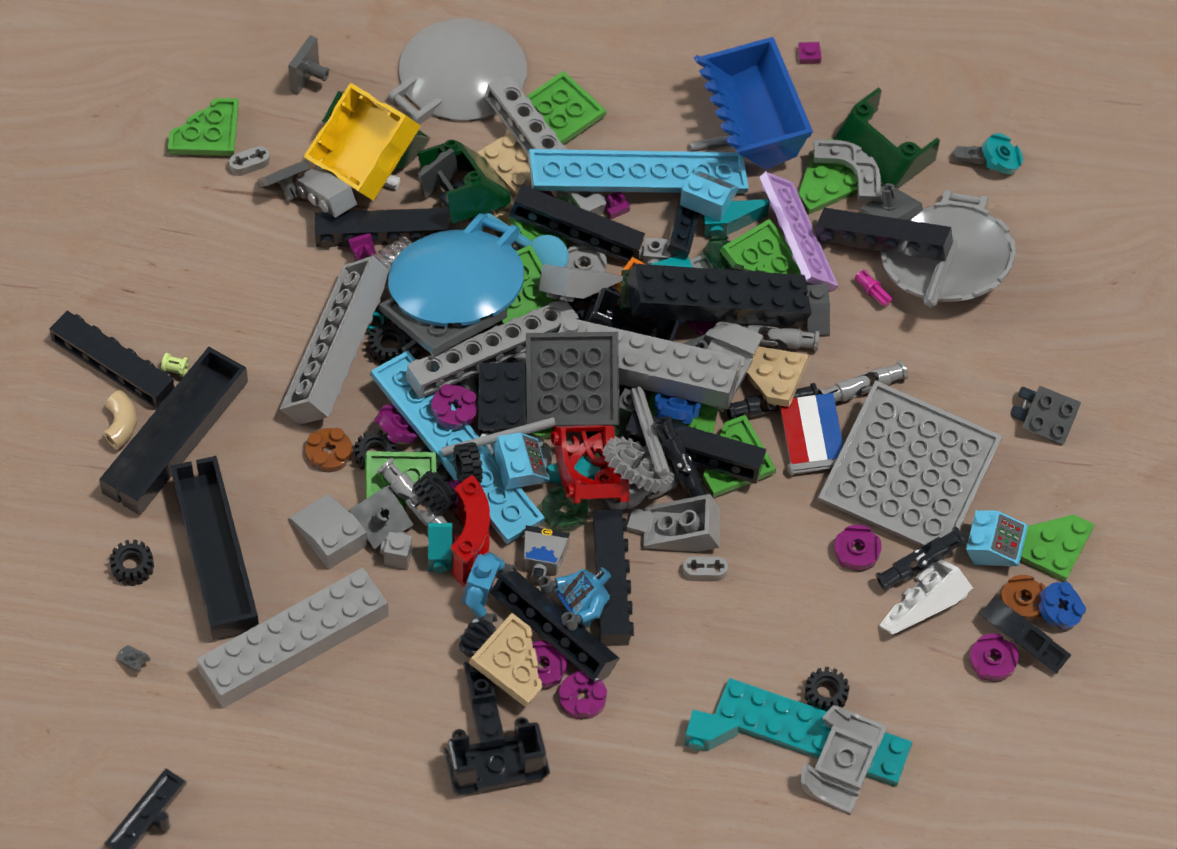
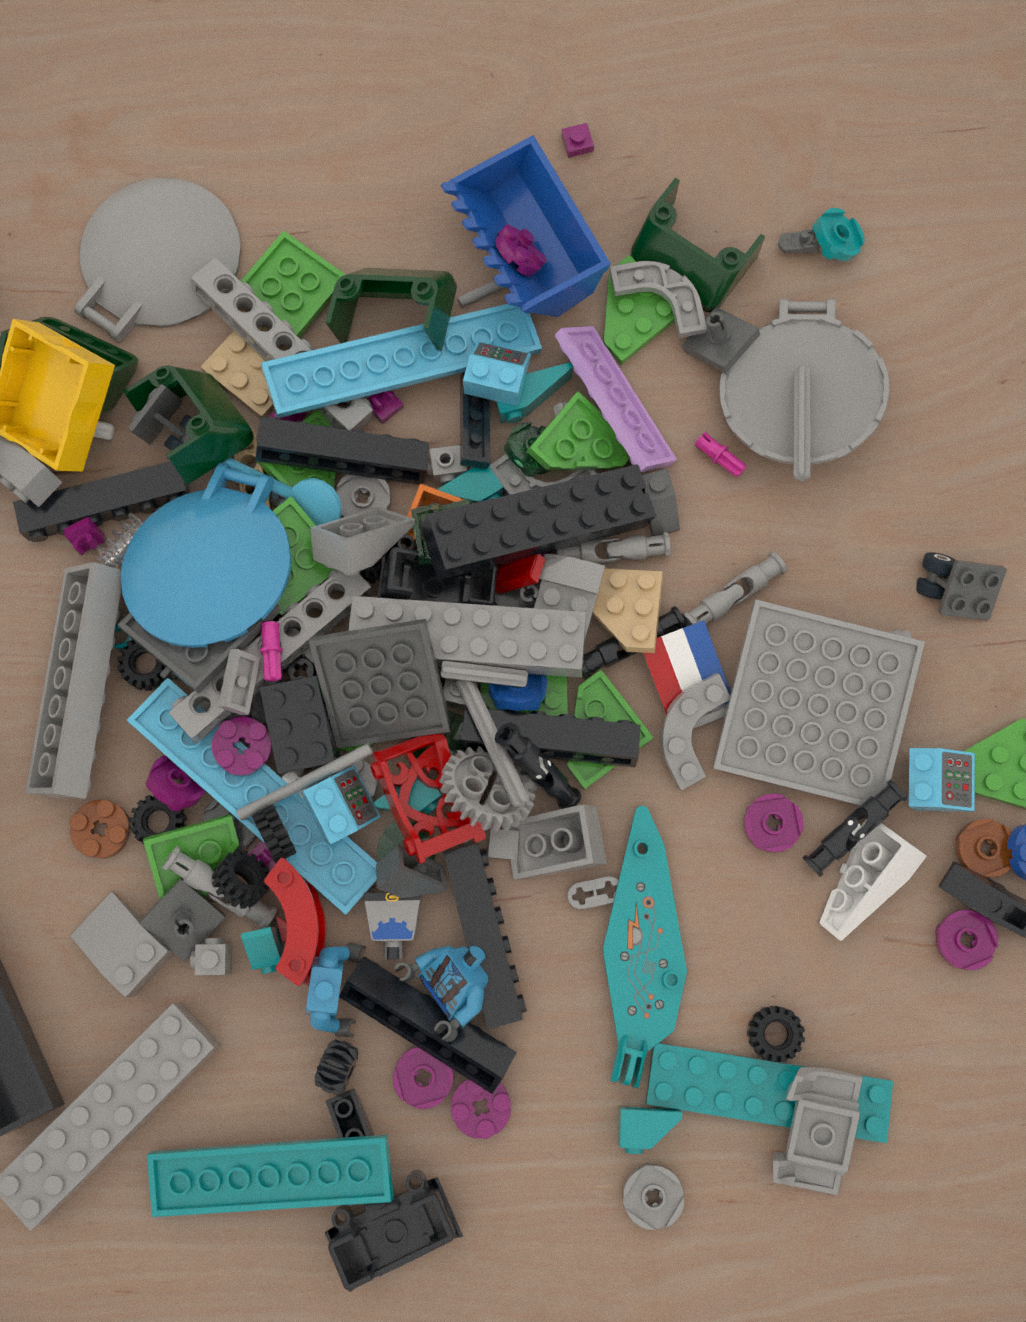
camera: 10 degrees left, 20 degrees up
(410, 697) = (270, 1176): none -> teal plate
(466, 353) = (239, 682): none -> light grey plate
(494, 339) = (271, 651): none -> dark pink axle
(510, 660) = (383, 1093): tan plate -> none
(563, 516) = (406, 877): none -> dark grey slope
(653, 387) = (483, 673): none -> light grey axle
(672, 128) = (425, 287): none -> dark green windscreen
(696, 331) = (519, 573): none -> red tile
(704, 795) = (657, 1214): none -> light grey plate
(735, 612) = (643, 952): none -> teal wing
(746, 113) = (519, 247): none -> magenta plate
(796, 463) = (678, 727): none -> light grey plate
(884, 234) = (723, 383): black brick -> none

